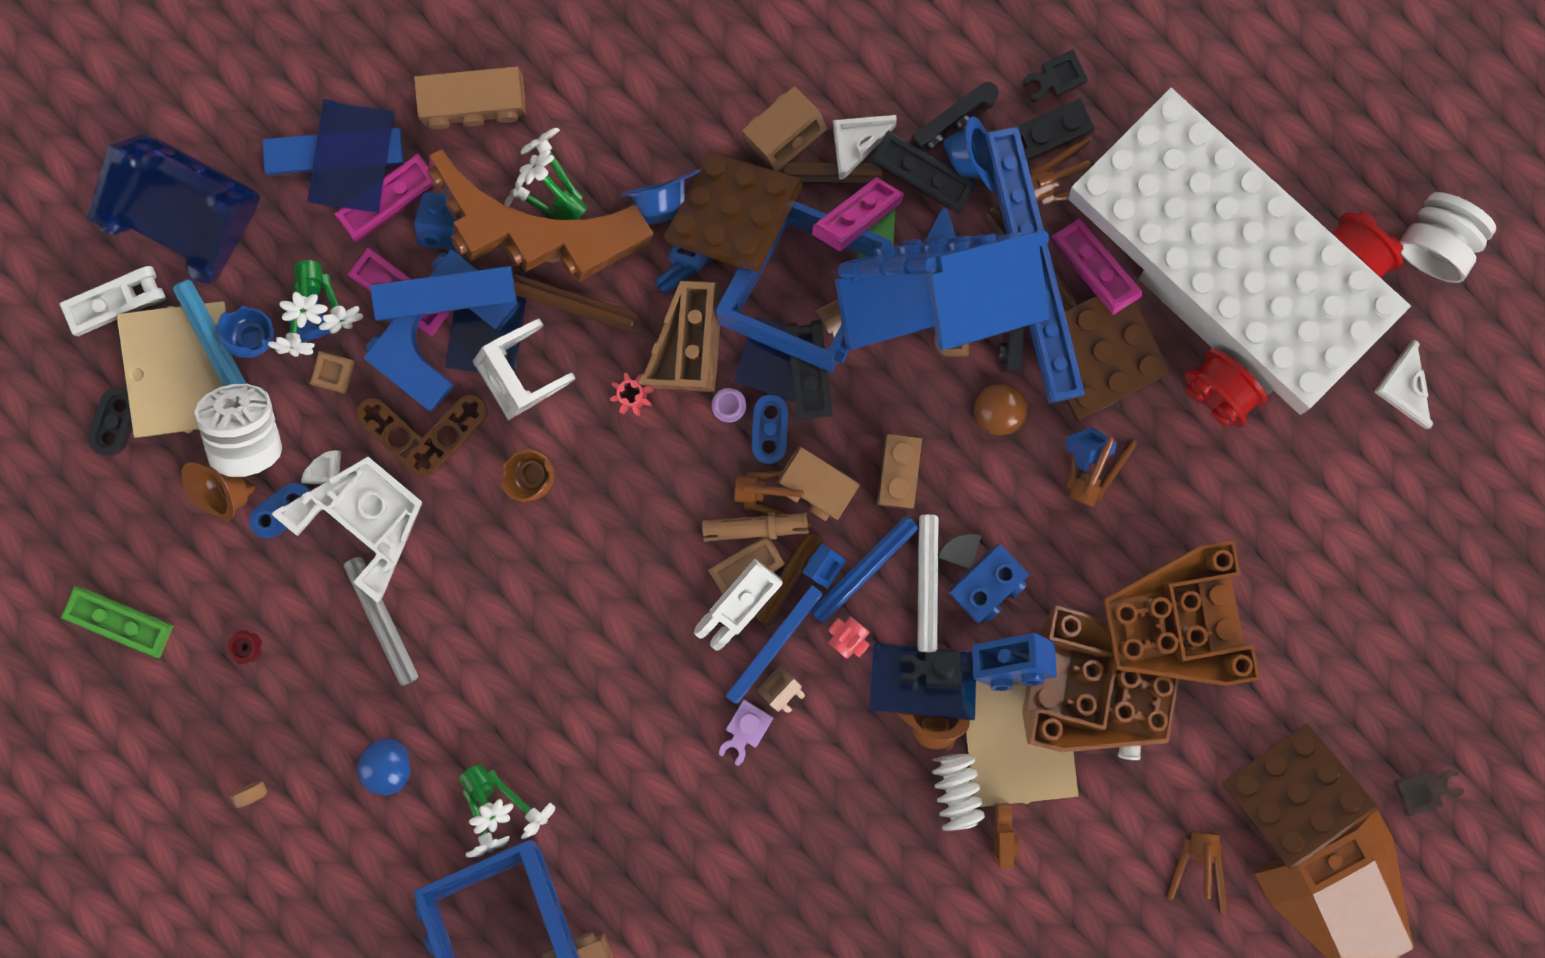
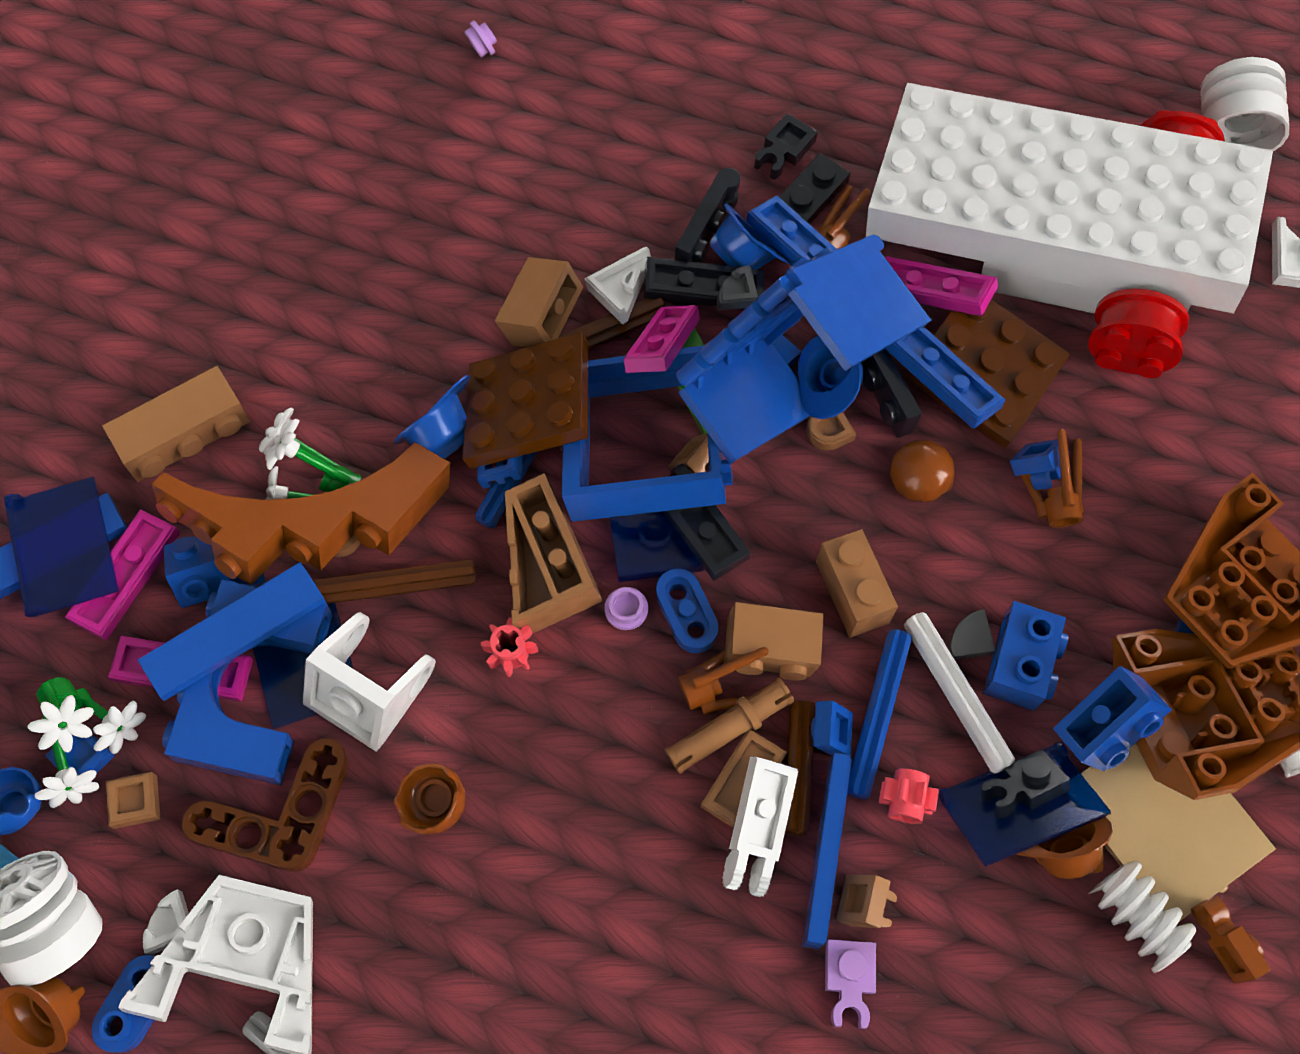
camera: 30 degrees left, 20 degrees down
(943, 193) = (737, 290): none -> dark grey tile

